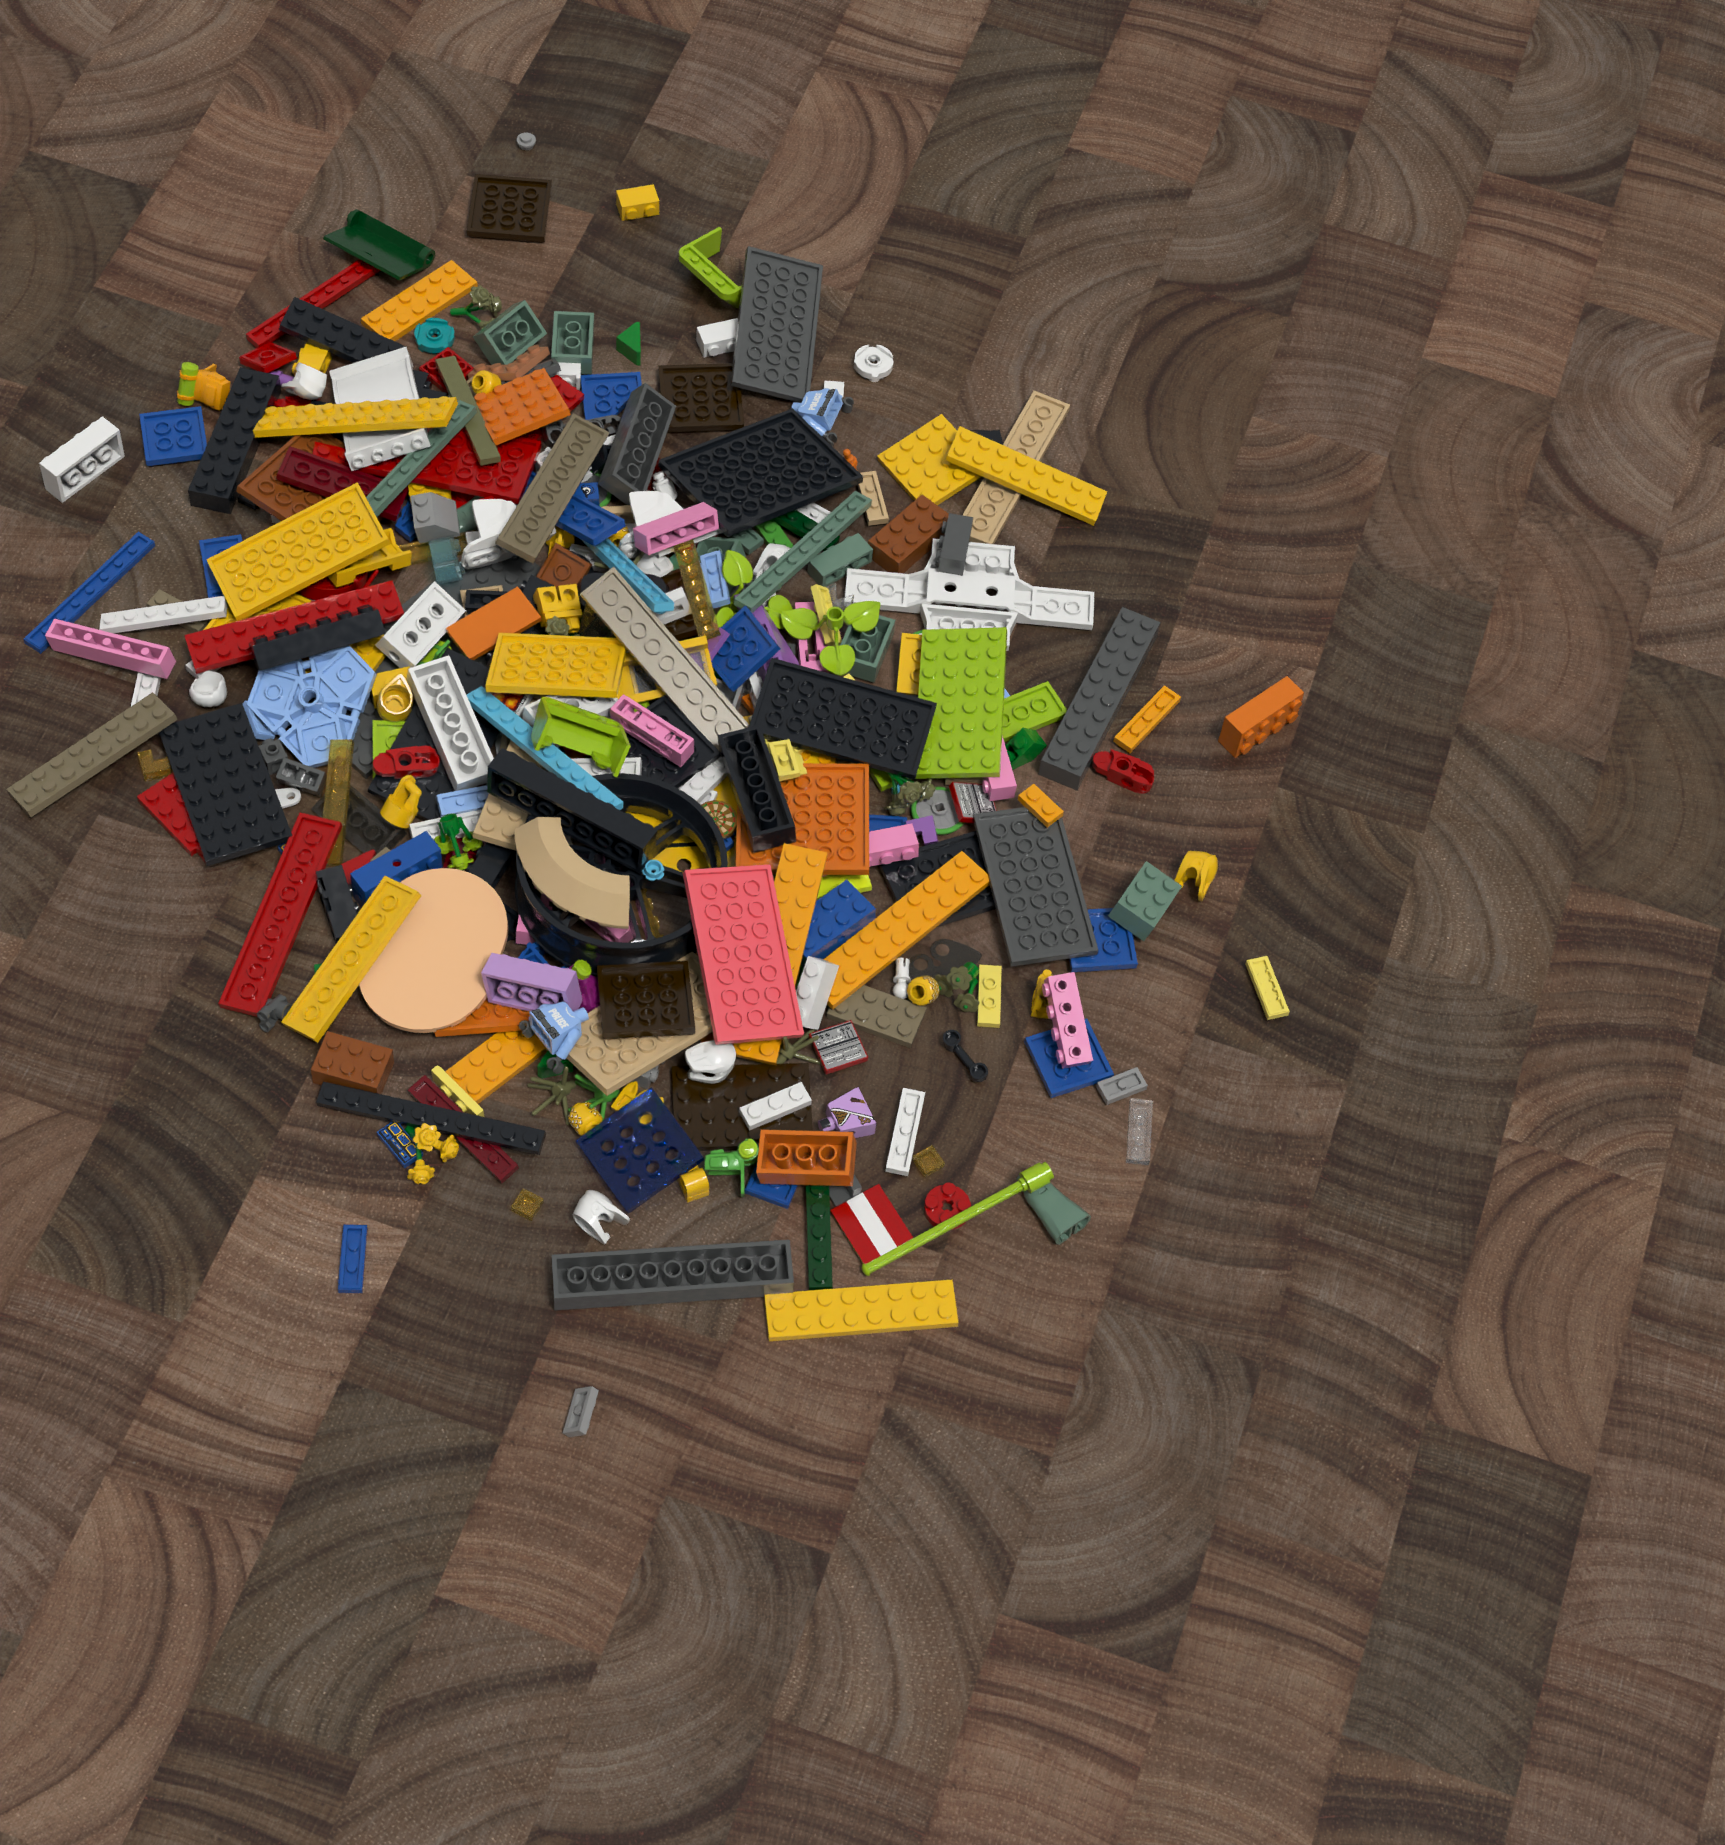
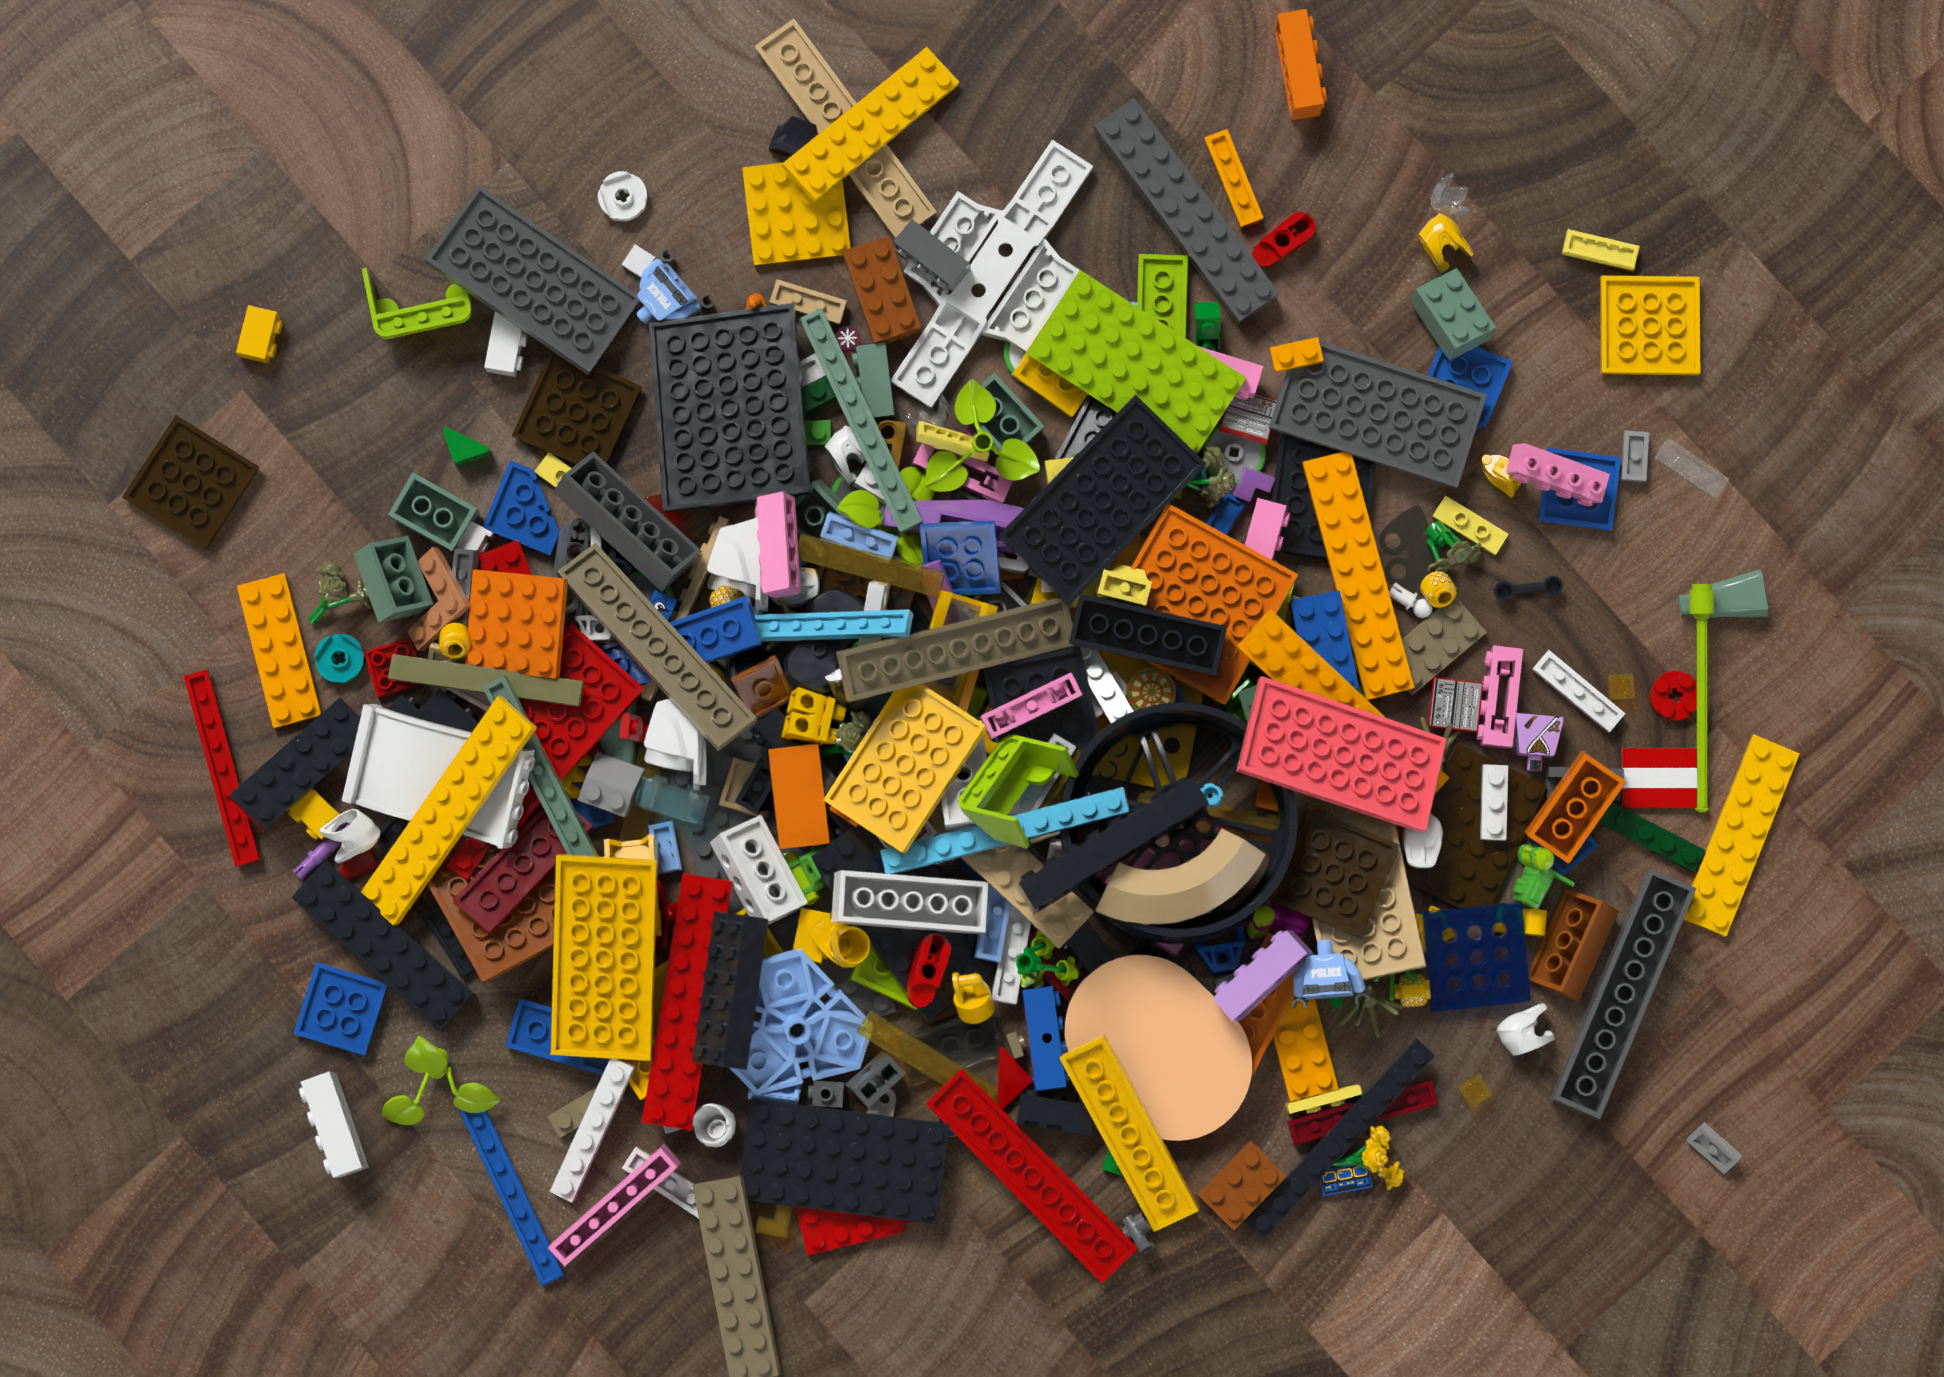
camera: 55 degrees left, 25 degrees up
(148, 531) = (433, 1061): none -> lime plant
(202, 386) = (294, 947): light orange piece -> none
(267, 357) = (284, 858): red tile -> none
(352, 1259) = (1446, 1281): blue tile -> none
(381, 246) = (181, 658): dark green door -> none
(410, 577) = (668, 850): none -> light blue plate
(526, 141) = (94, 411): light grey plate -> none
(664, 484) = (687, 520): white arm -> none
(692, 1222) = (1572, 944): none -> dark orange slope
(802, 591) = (897, 440): none -> pearl gold plate
(815, 990) = (1395, 697): white brick -> none
(864, 530) = (848, 338): none -> clear pink tile
(866, 1074) = (1495, 737): none -> bright pink brick
(1231, 862) = (1447, 198): none -> clear piece
(1233, 1049) = (1650, 325): none -> yellow plate

